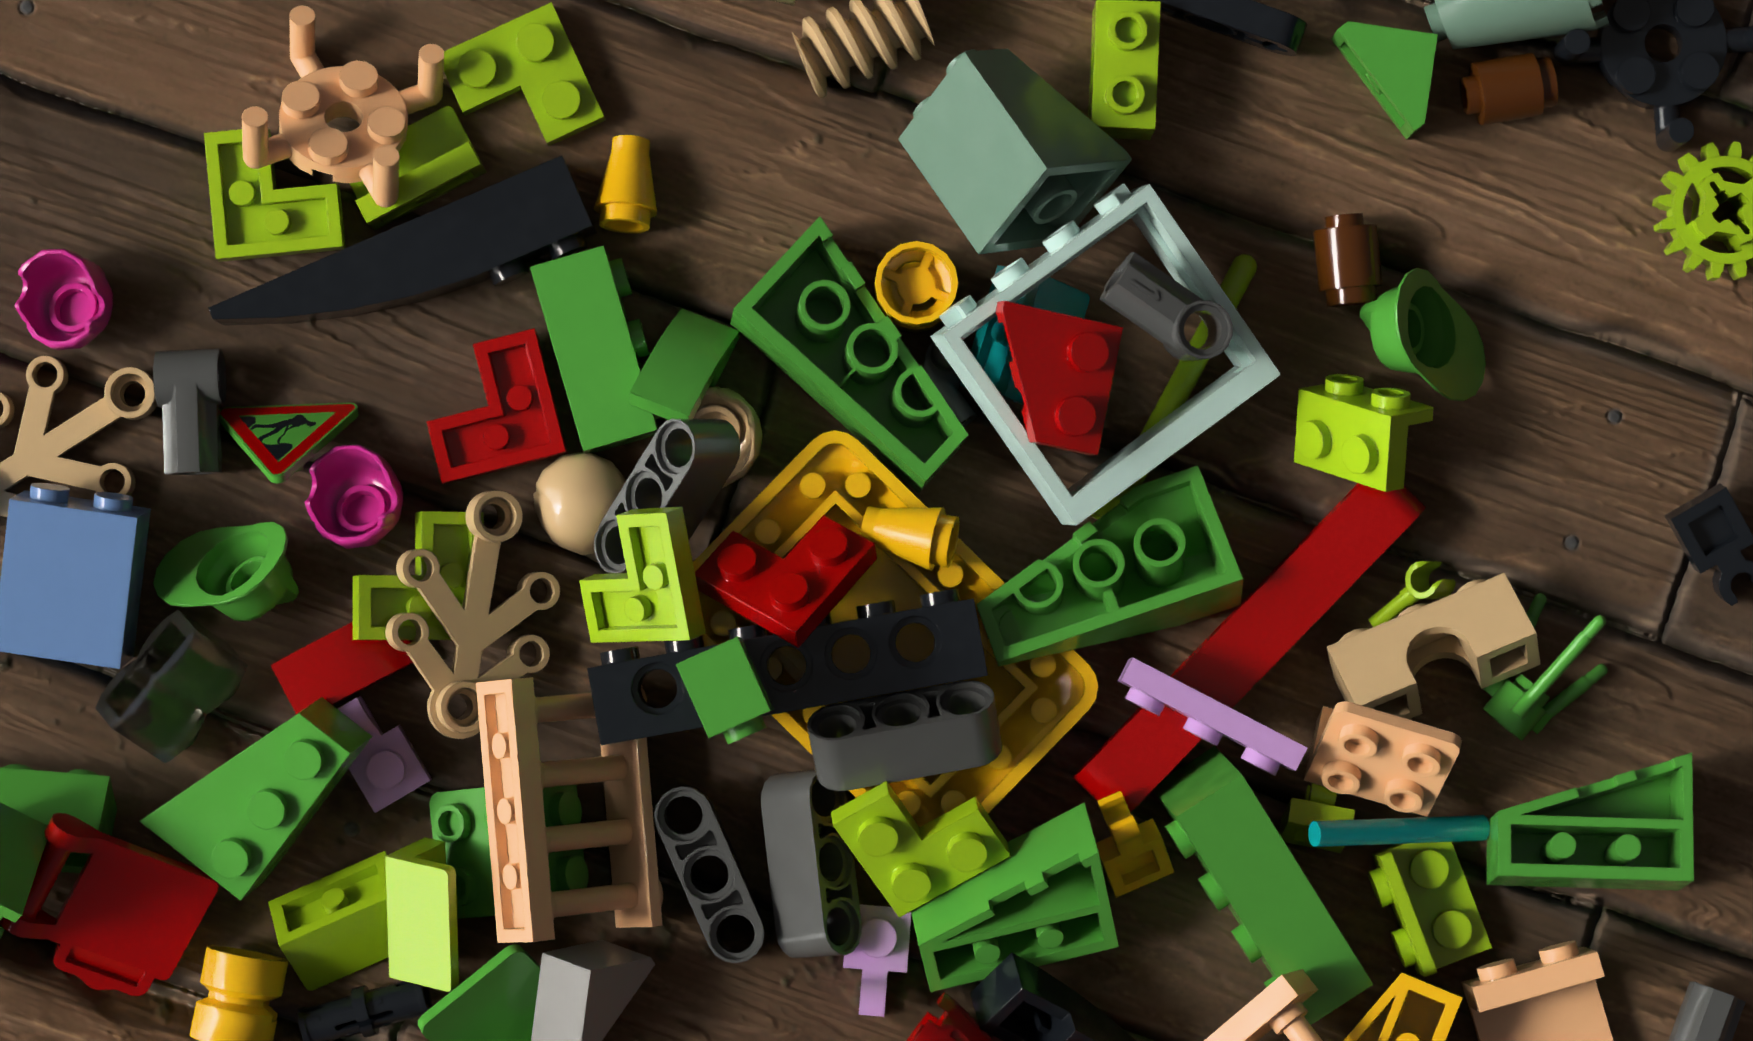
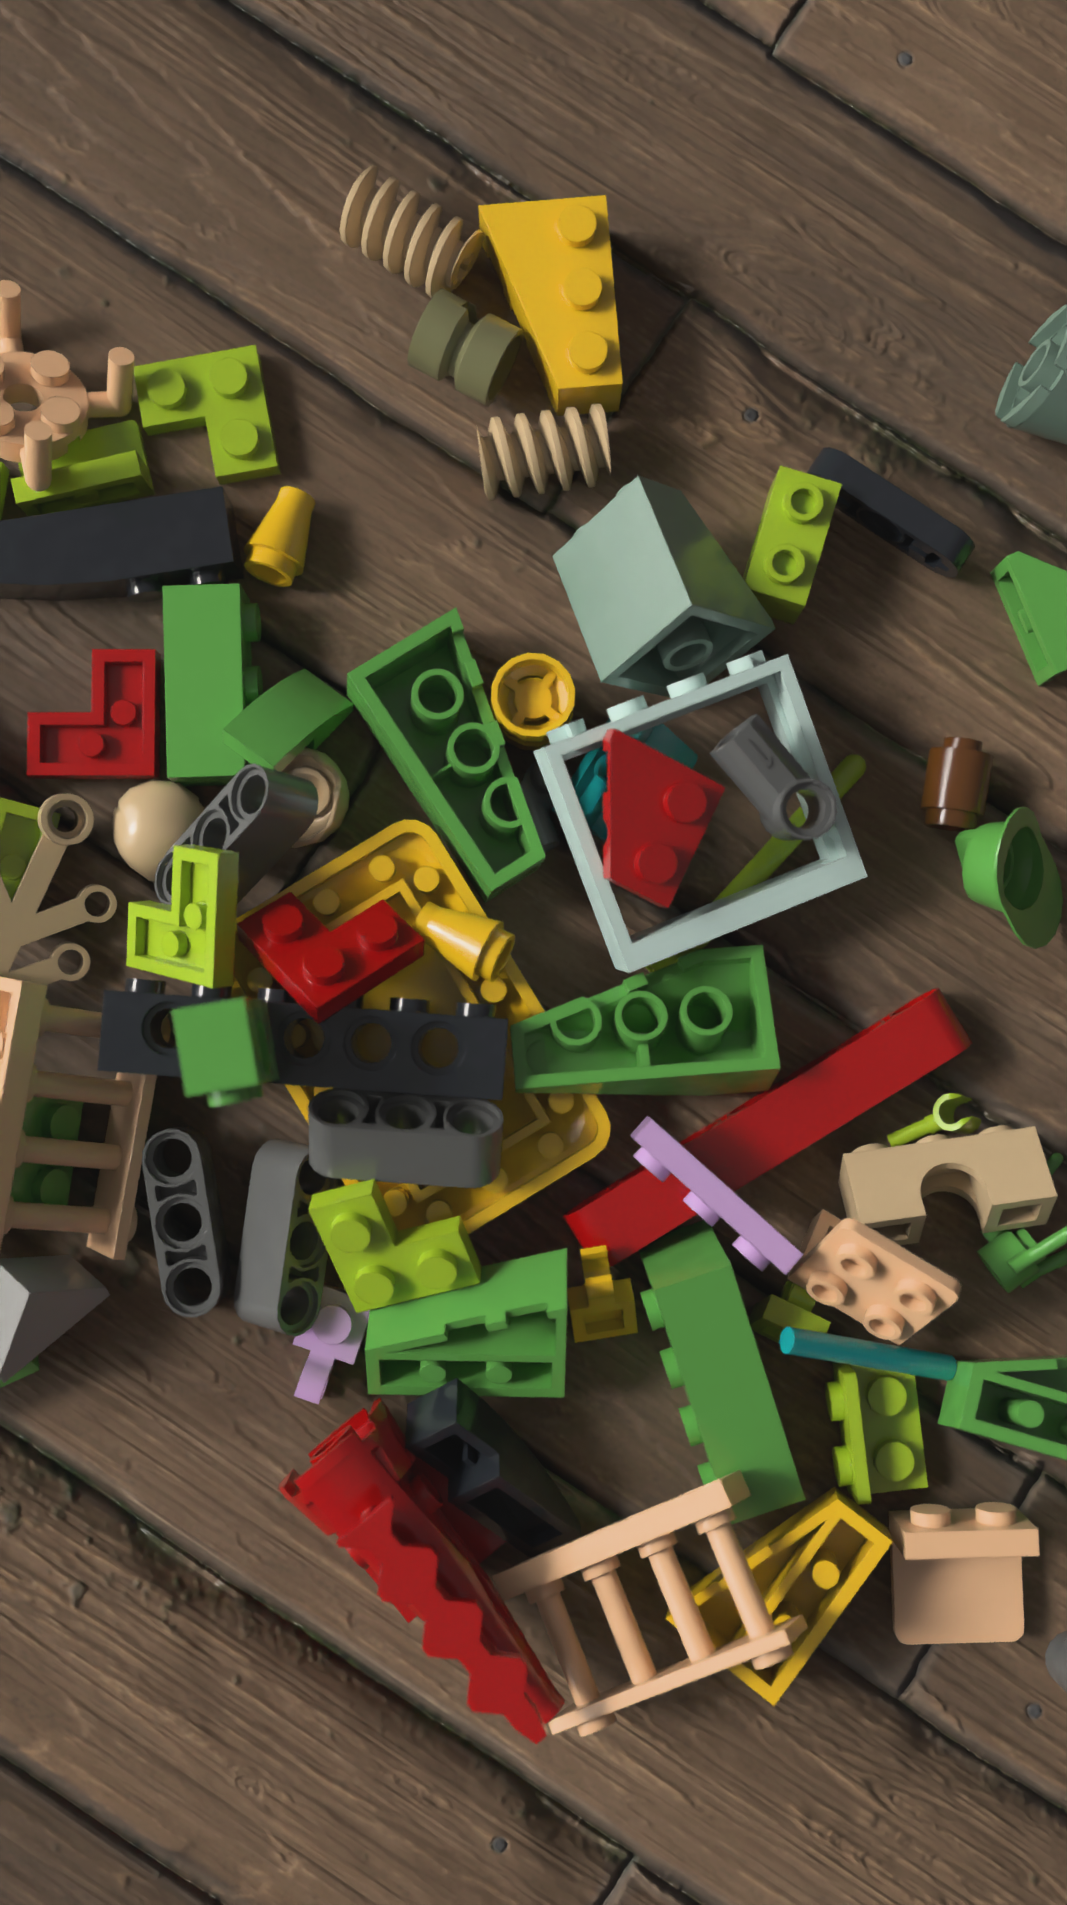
camera: 10 degrees right, 0 degrees up
(1356, 430) = (927, 951): lime bracket -> none

